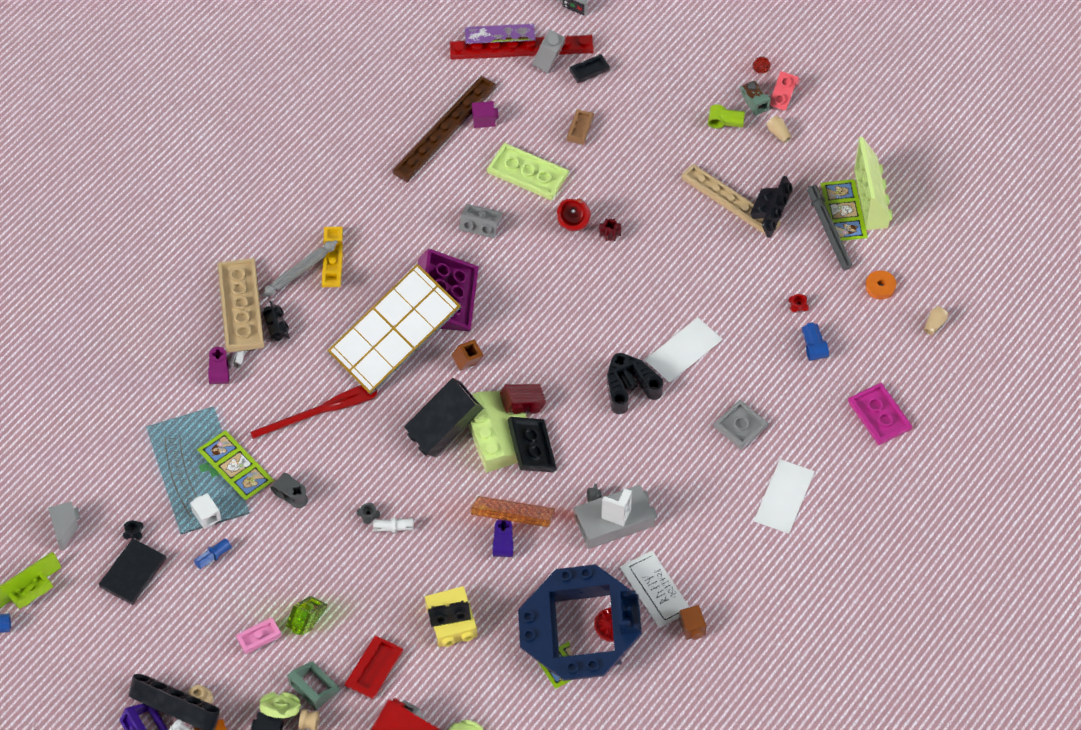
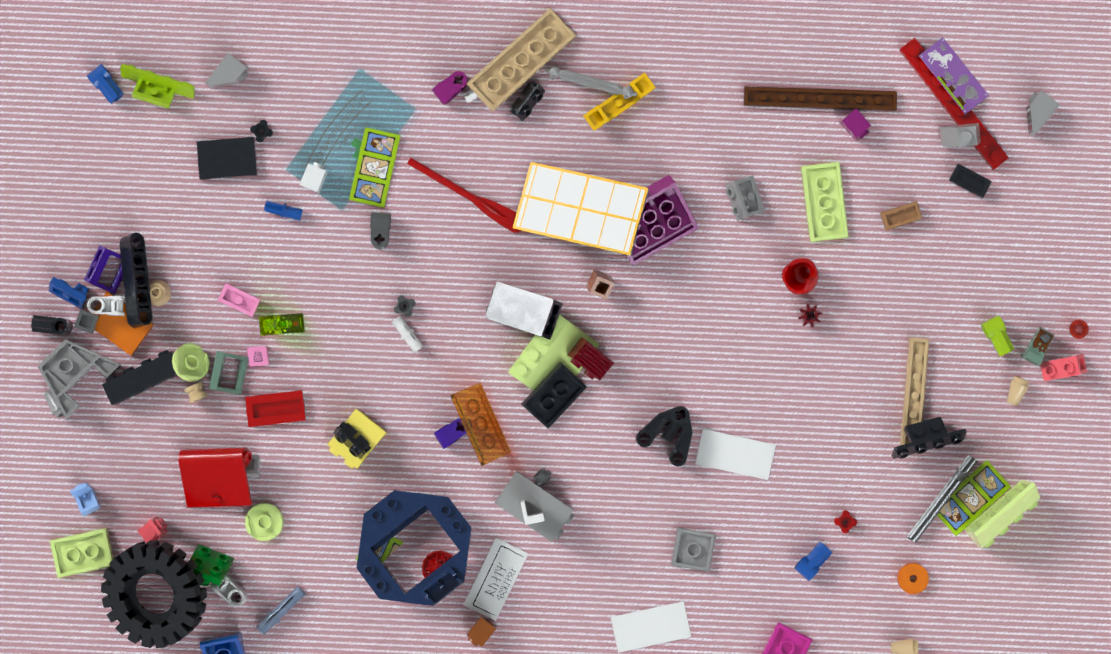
camera: 55 degrees right, 30 degrees up
(317, 651) = (258, 356): none -> bright pink slope

